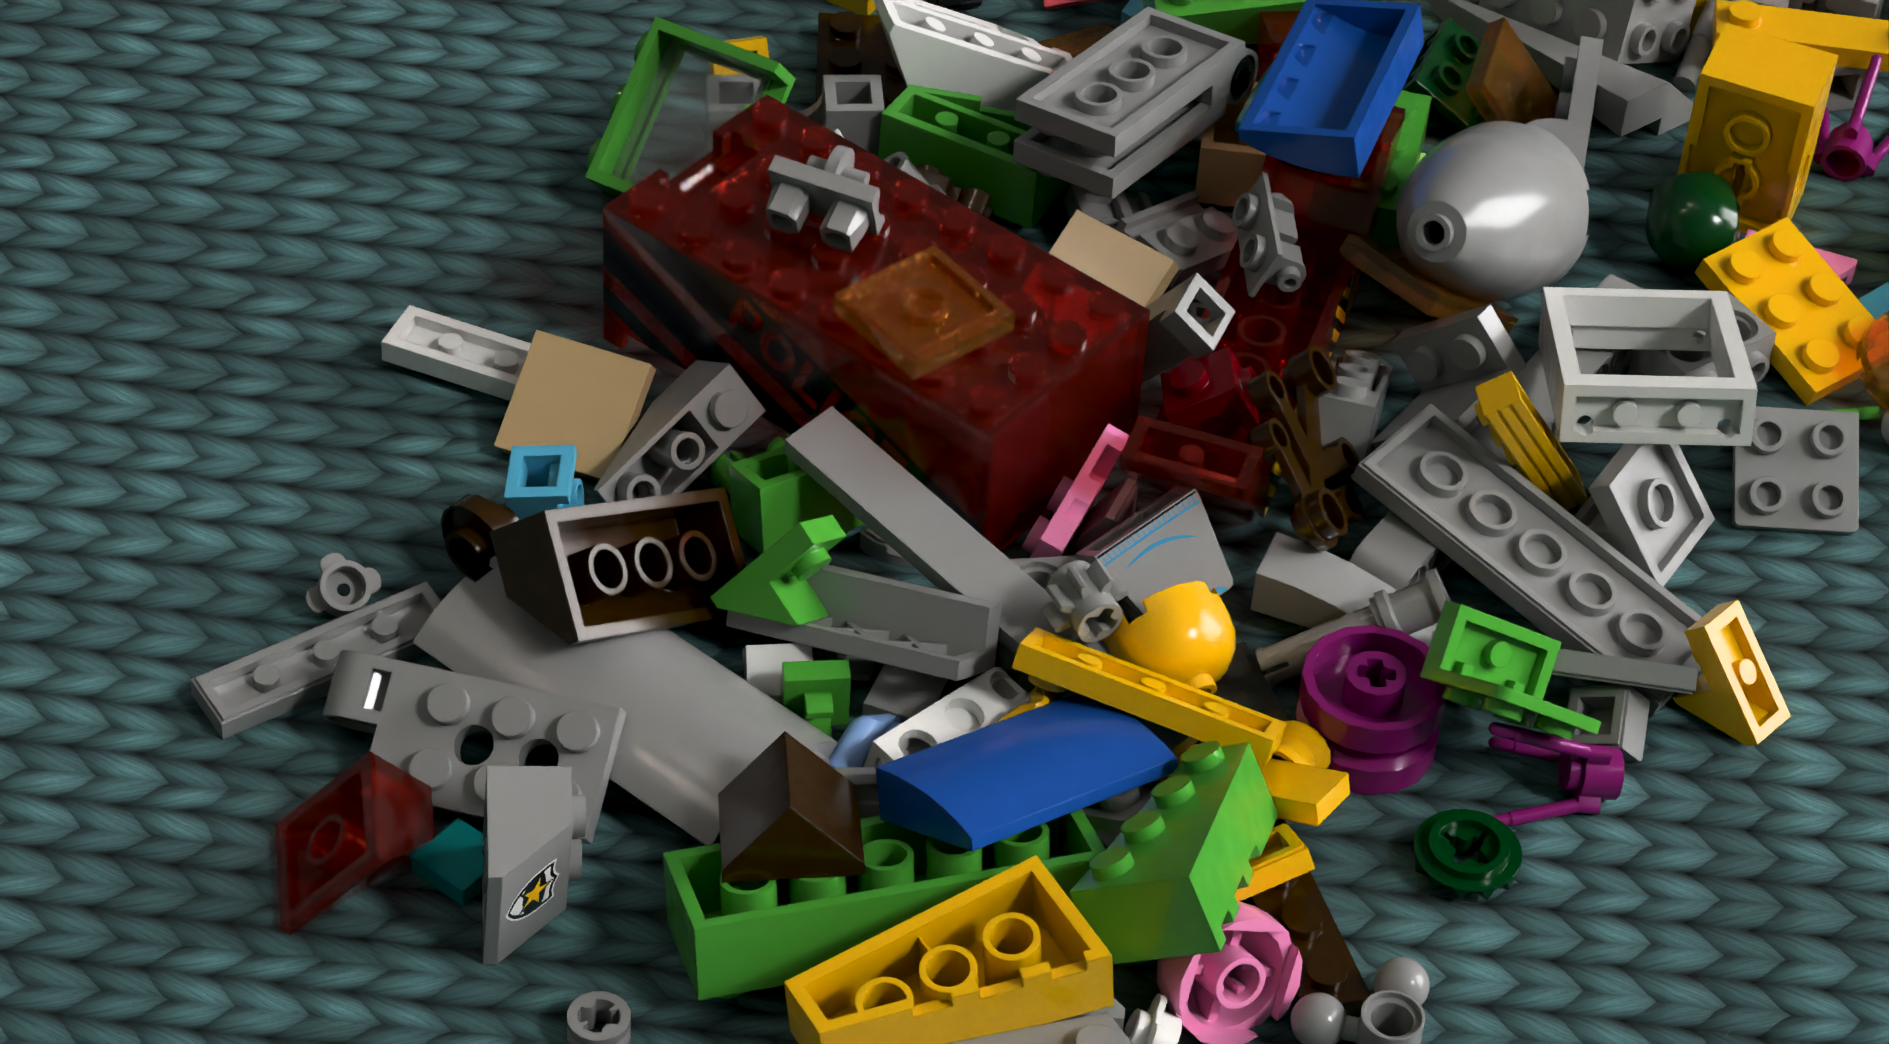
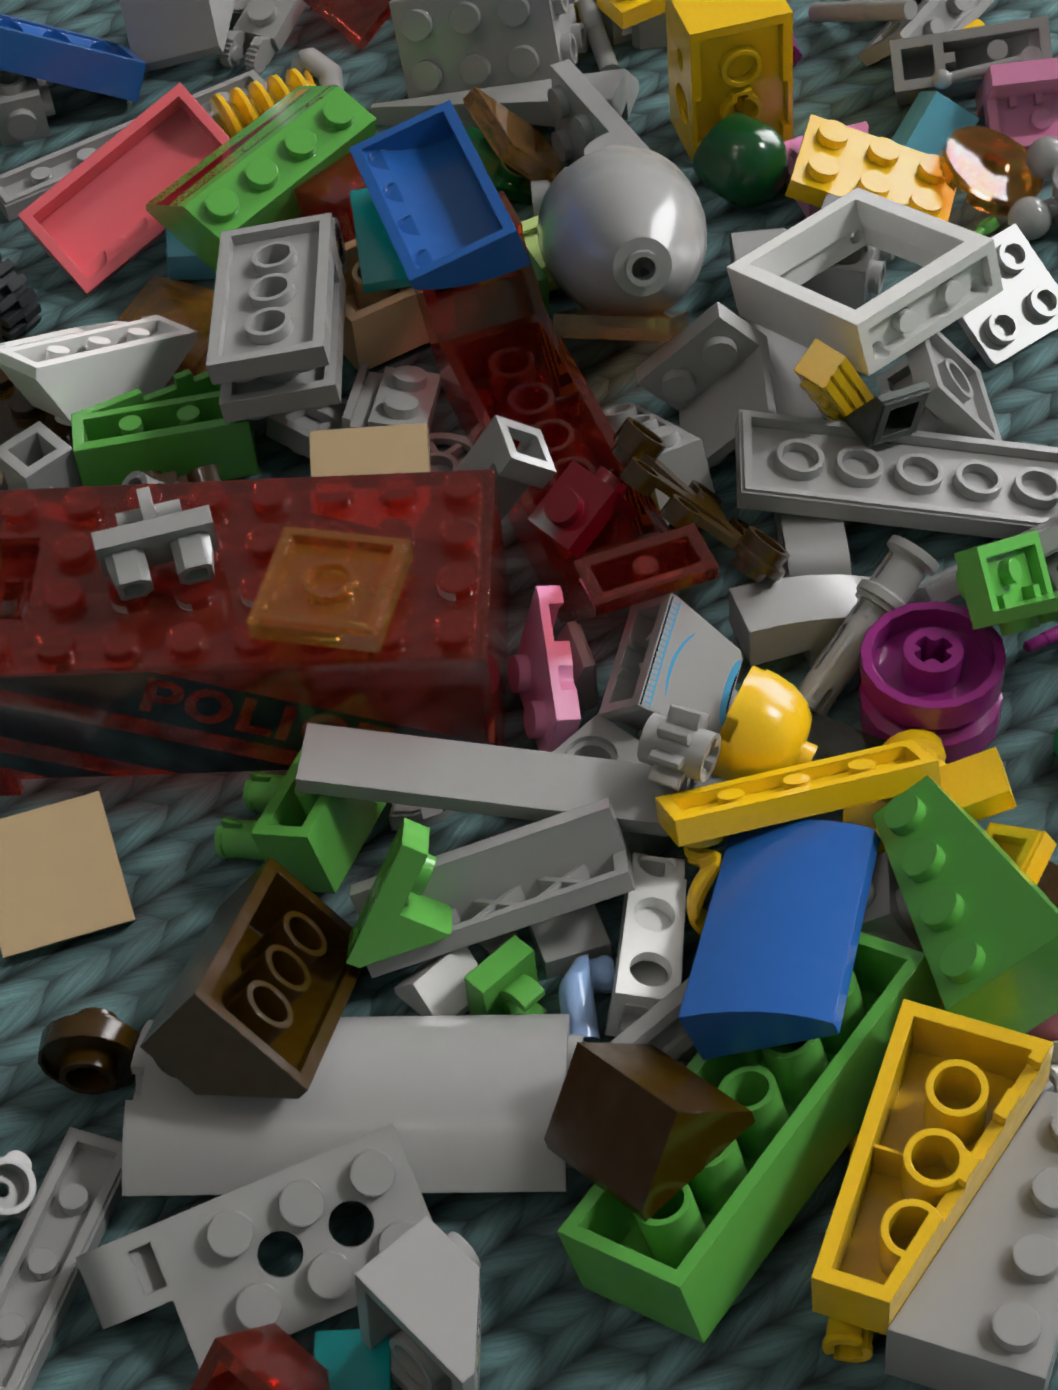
camera: 30 degrees left, 5 degrees up
(542, 479) = (105, 966): medium azure brick -> none
(681, 433) = (168, 841): light grey slope -> none
(1267, 239) = (489, 360): light grey hinge -> none
(1553, 486) = (889, 415): none -> pearl dark grey slope

